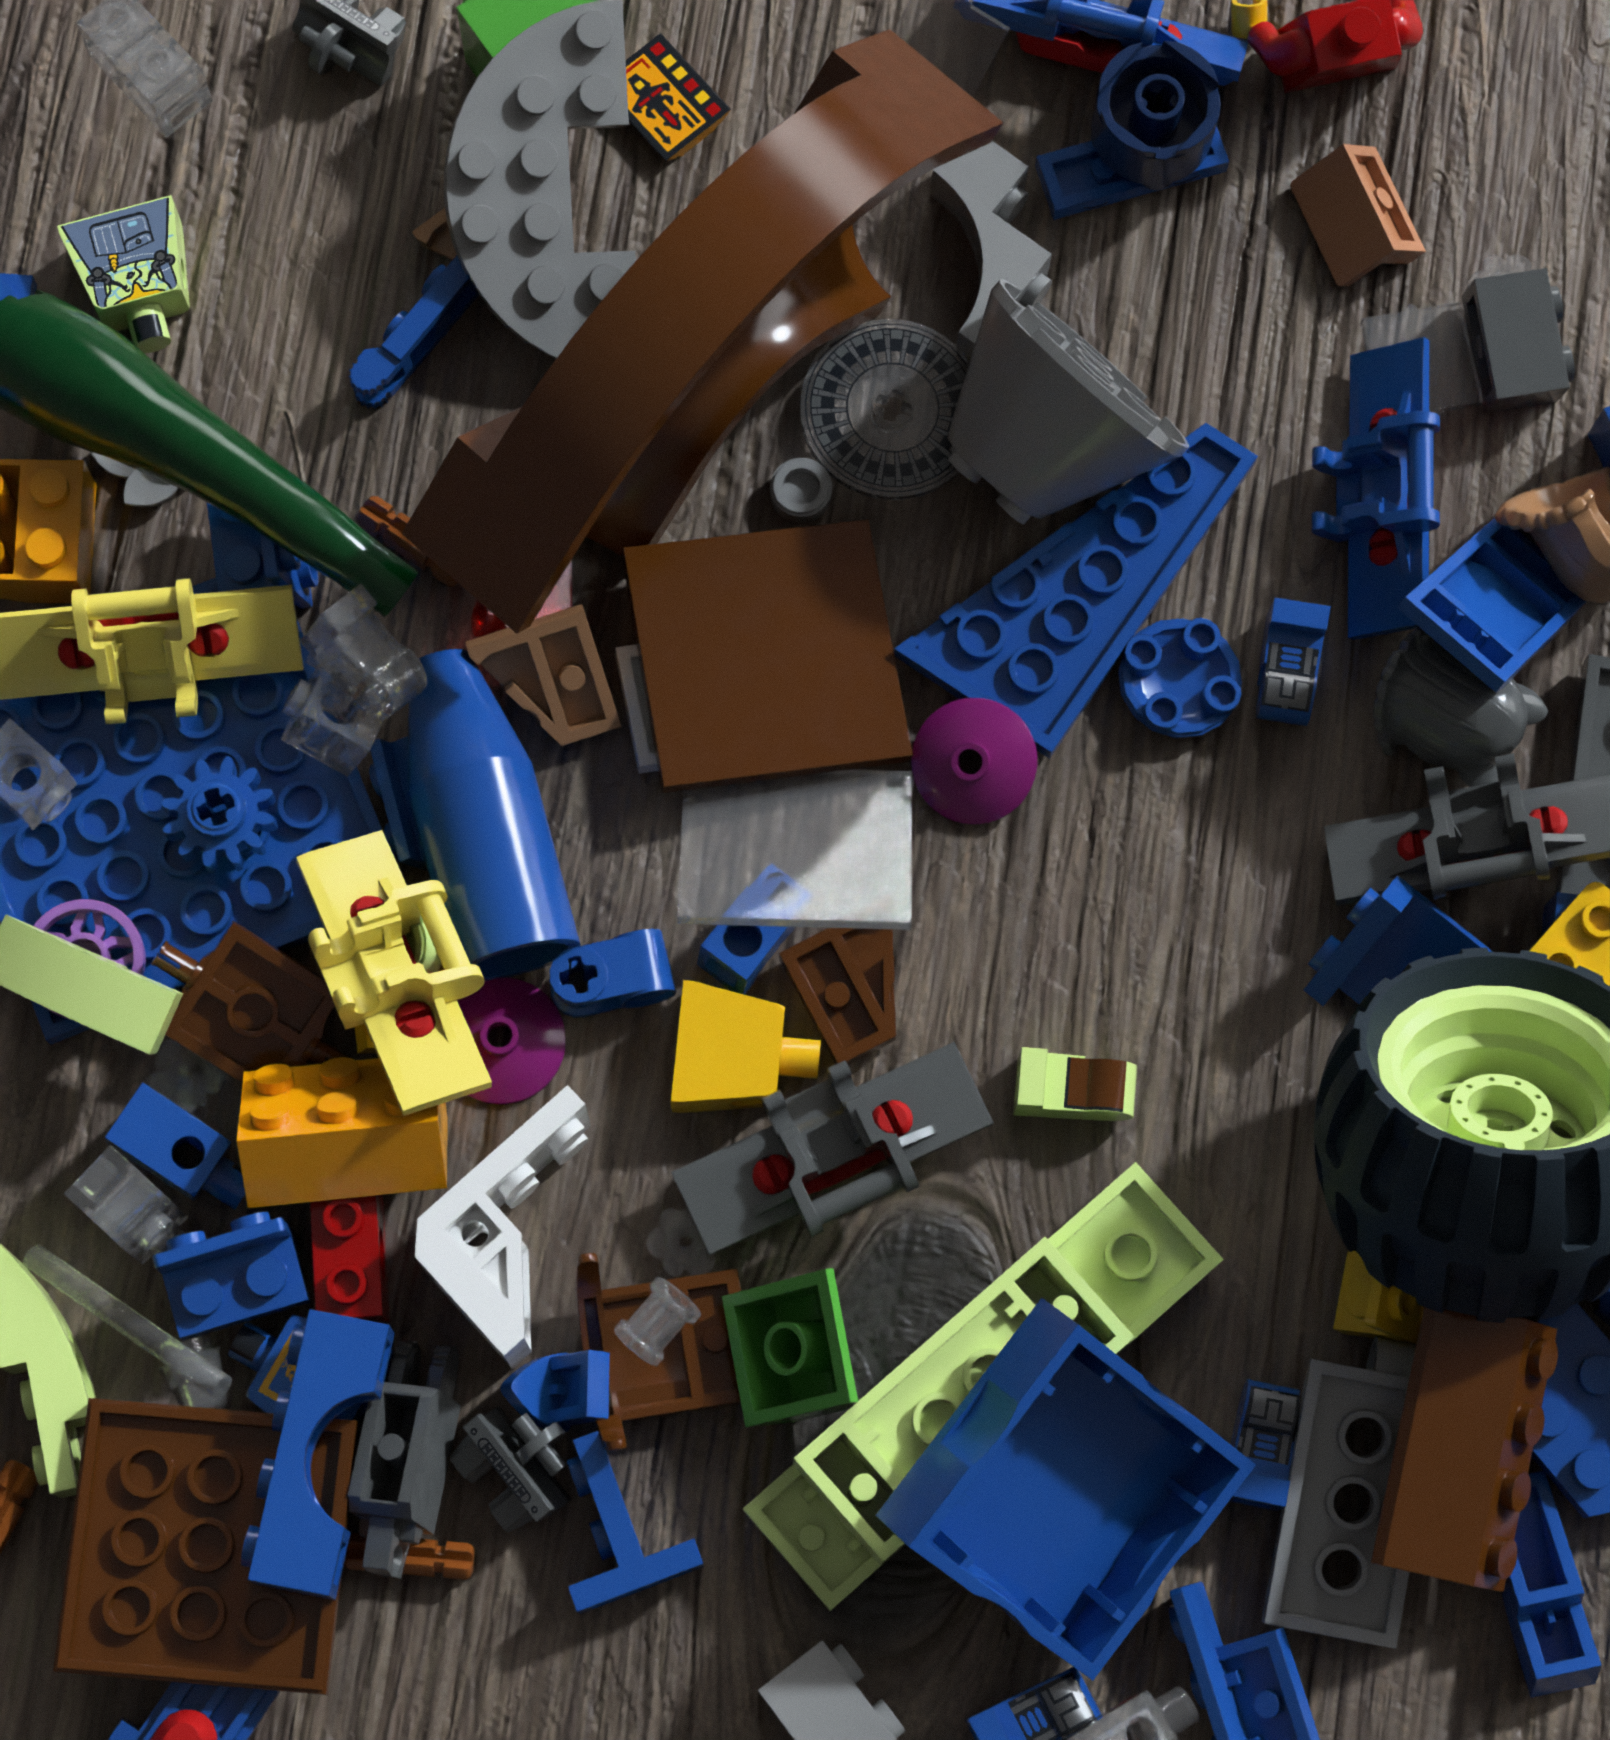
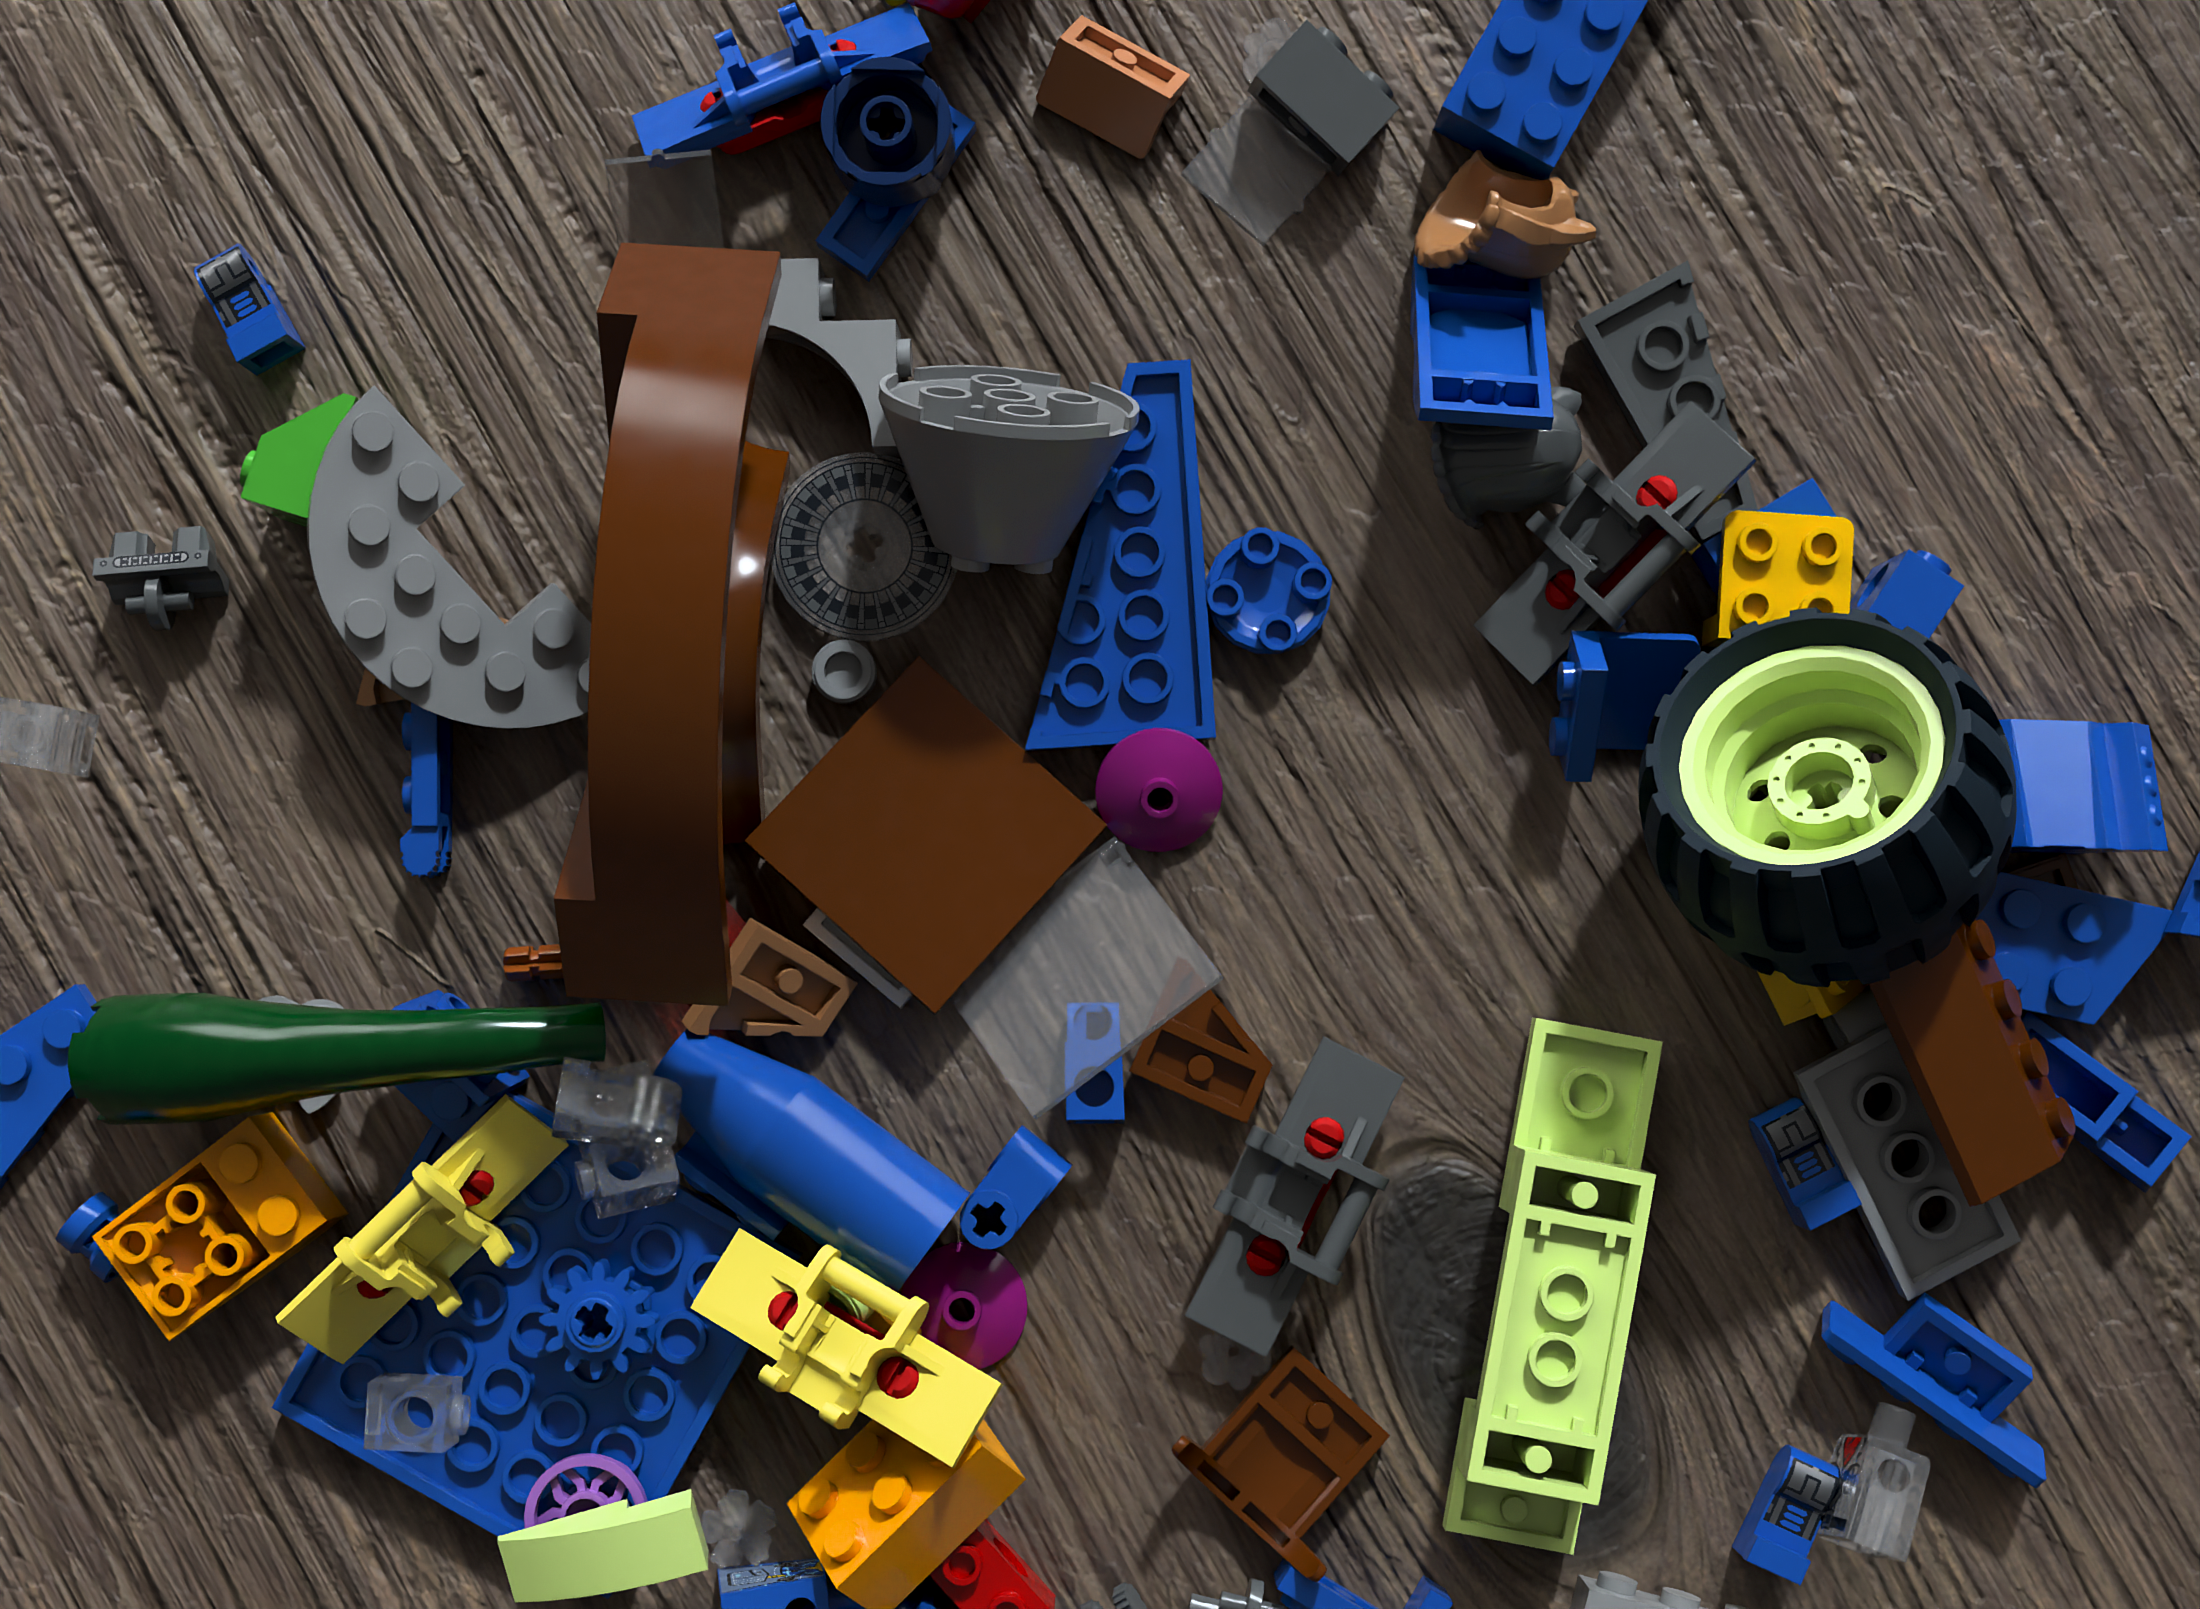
camera: 30 degrees left, 10 degrees up
(133, 268) = (153, 916): torso -> none
(248, 1005) = (746, 1450): reddish brown plate -> none
(494, 1279) = (1119, 1520): white bracket -> none
(561, 1388) = (1232, 1549): blue tile -> none
(657, 1321) = (1269, 1445): clear bush -> none
(670, 99) = (473, 423): piece -> none
(733, 1050) = (1155, 1177): yellow torso -> none
(790, 1350) = (1390, 1388): bright green slope -> none
(1065, 1489) = (1693, 1339): blue tile -> none
(1073, 1086) = (1440, 994): yellowish green leg -> none
(1290, 660) = (1346, 512): blue leg -> none
(1383, 485) = (1311, 305): blue piece -> none

